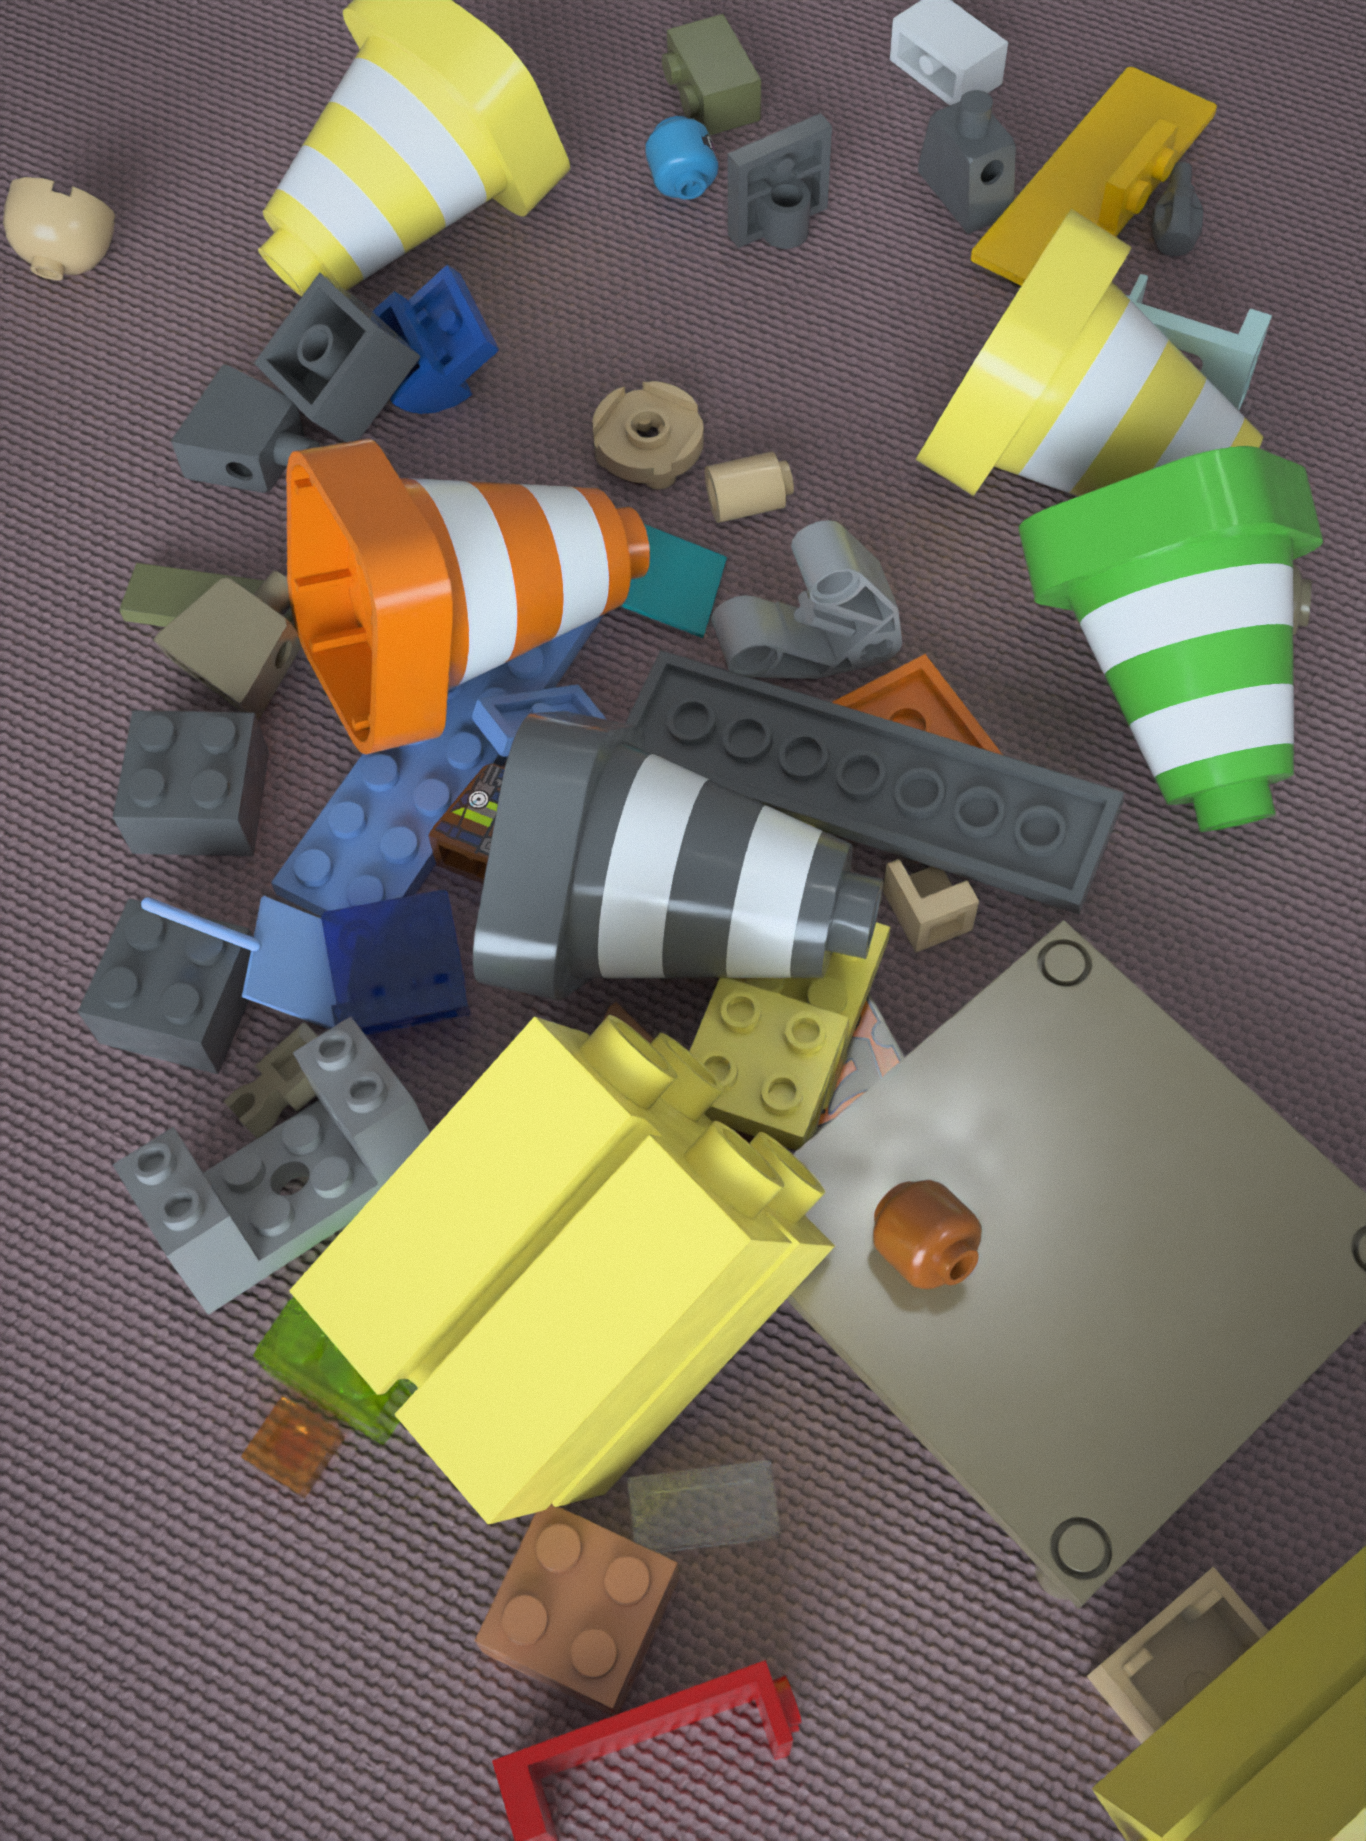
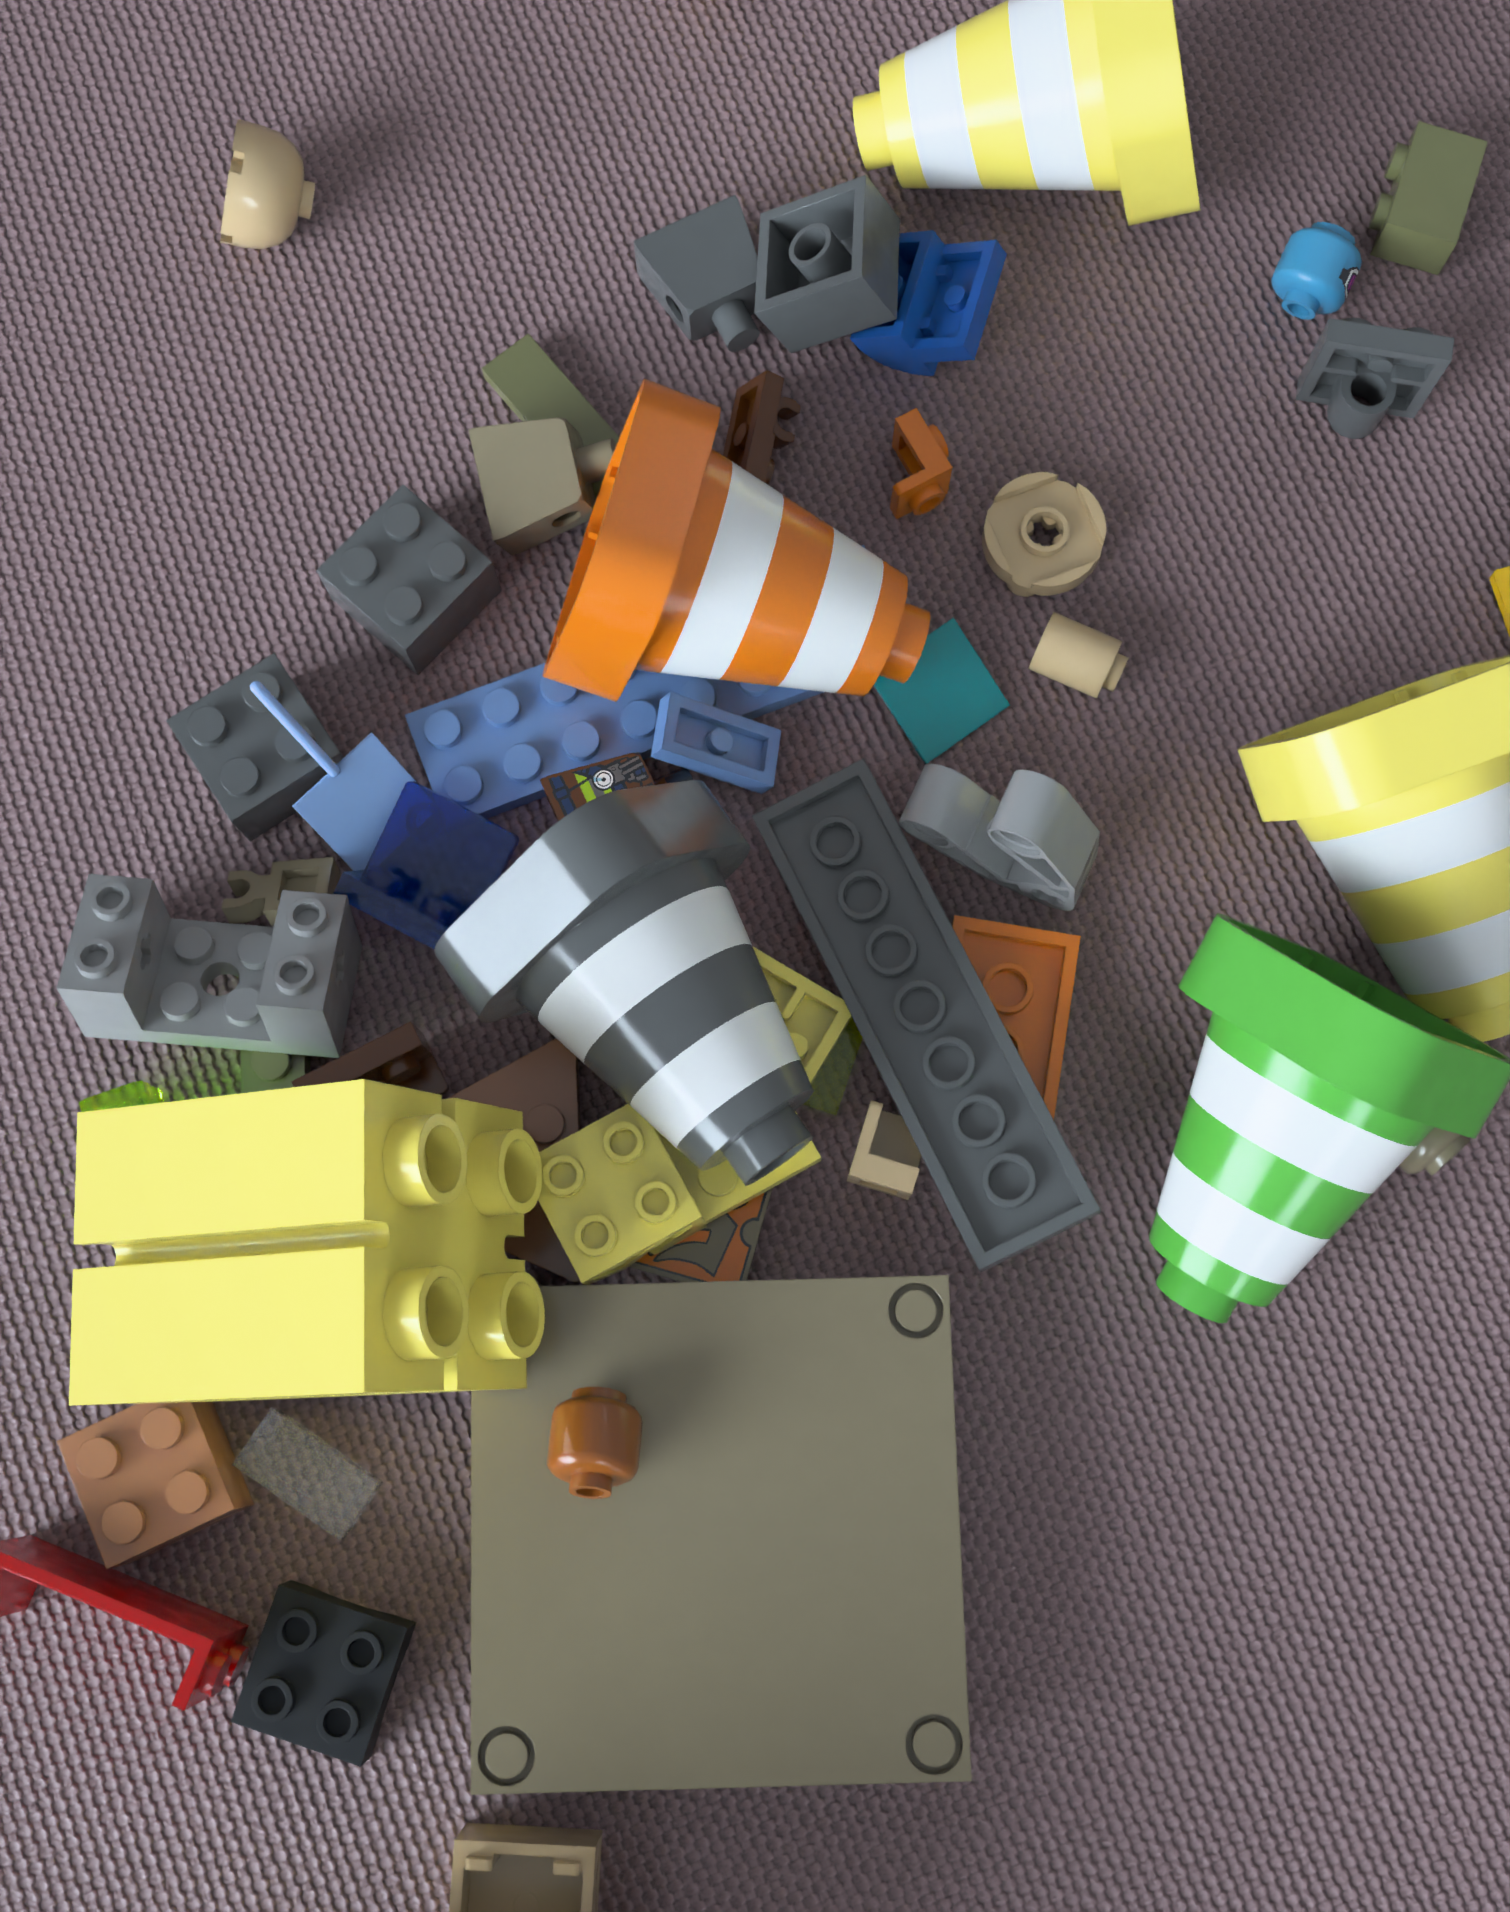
camera: 40 degrees right, 15 degrees up
(293, 1447) = (53, 1186): clear orange plate -> none
(517, 443) = (925, 459): none -> orange bracket
(865, 1648) = (323, 1672): none -> black brick

